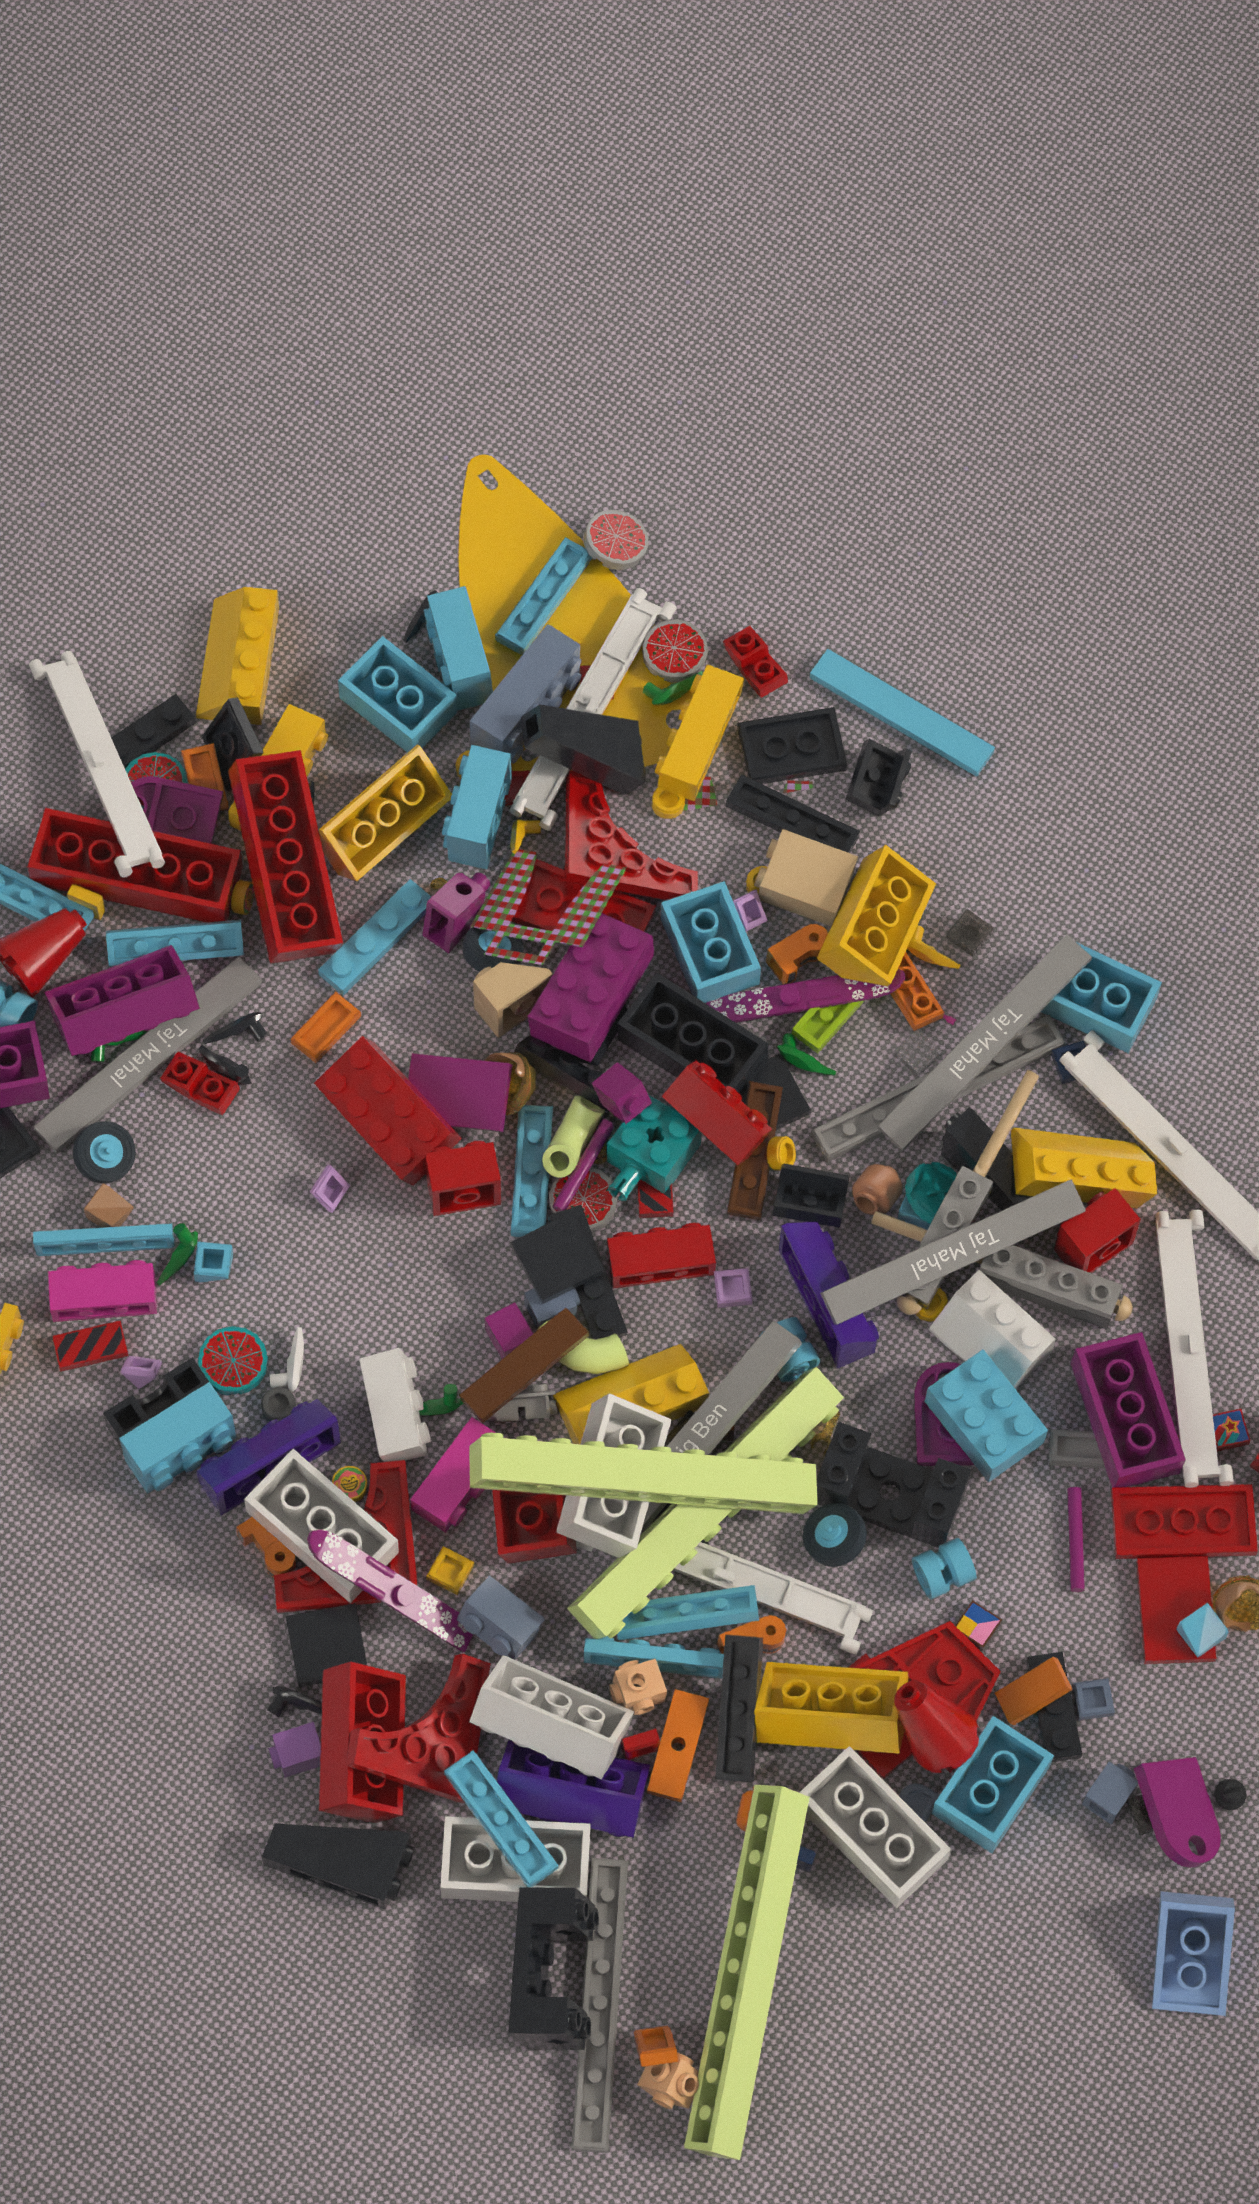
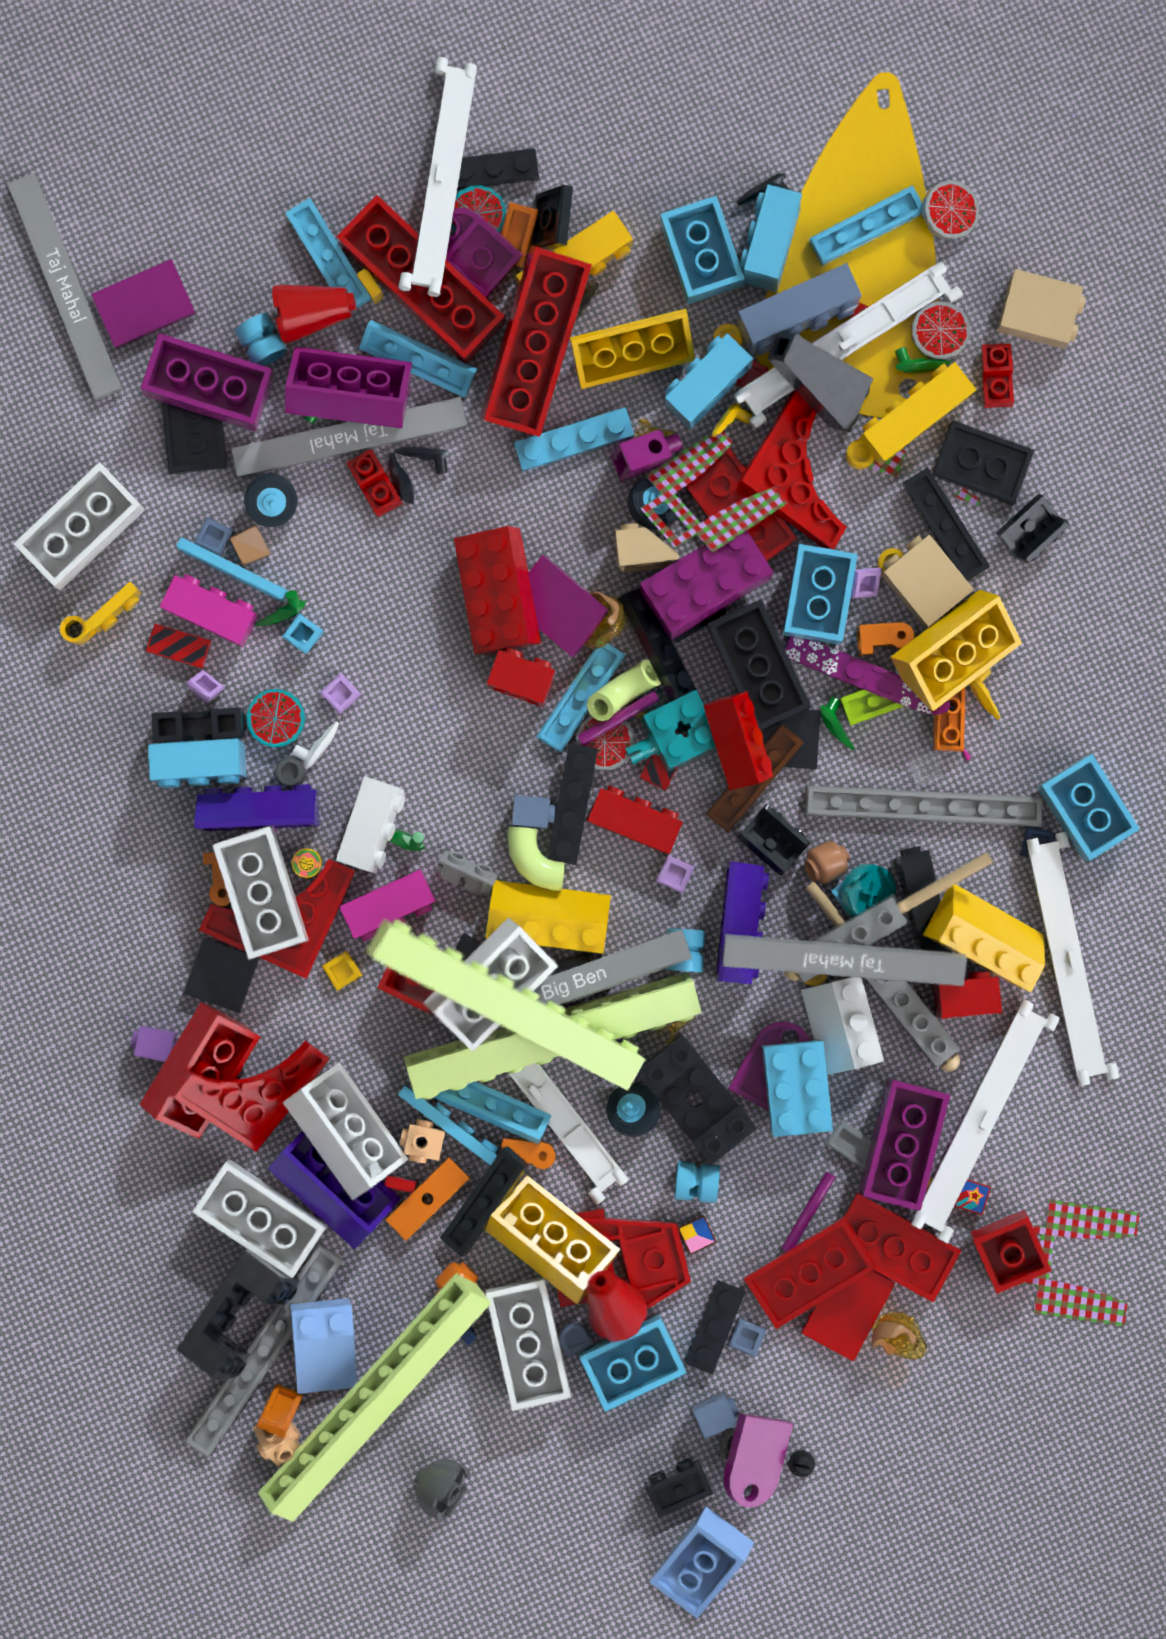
camera: 30 degrees right, 20 degrees up
(64, 1217) = (214, 537): none -> sand blue tile
(239, 652) = (601, 143): yellow slope -> none
(242, 897) = (489, 350): yellow tile -> none
(285, 1301) = (340, 693): none -> lavender tile
(299, 1700) = (175, 1001): black bar -> none
(325, 1027) = (494, 491): orange tile -> none
(329, 1188) = (421, 624): lavender slope -> none
(342, 1859) = (141, 1143): black slope -> none
(389, 1587) = (282, 972): piece -> none
(500, 1619) = (352, 1033): sand blue brick -> none
(501, 1819) = (262, 1189): medium azure tile -> none
(507, 1329) = (488, 818): magenta brick -> none
(524, 1365) = (480, 853): reddish brown tile -> none
(557, 1257) = (553, 783): black tile -> none
(621, 1093) = (675, 684): magenta brick -> none
(661, 1956) = (323, 1345): none -> light blue slope
(759, 580) = (1041, 309): none -> tan brick
(780, 1151) = (772, 792): yellow tile -> none
(873, 2031) = (440, 1487): none -> dark grey cylinder
(902, 712) = (1084, 483): medium azure tile -> none
(970, 932) = (1023, 696): clear smoke plate -> none
(984, 1042) = (977, 798): light grey tile -> none
(1033, 1691) = (705, 1311): orange tile -> none
(1115, 1590) = (810, 1272): none -> red plate
(1119, 1889) = (678, 1487): none -> black bracket
(1202, 1630) = (855, 1338): medium azure slope -> none

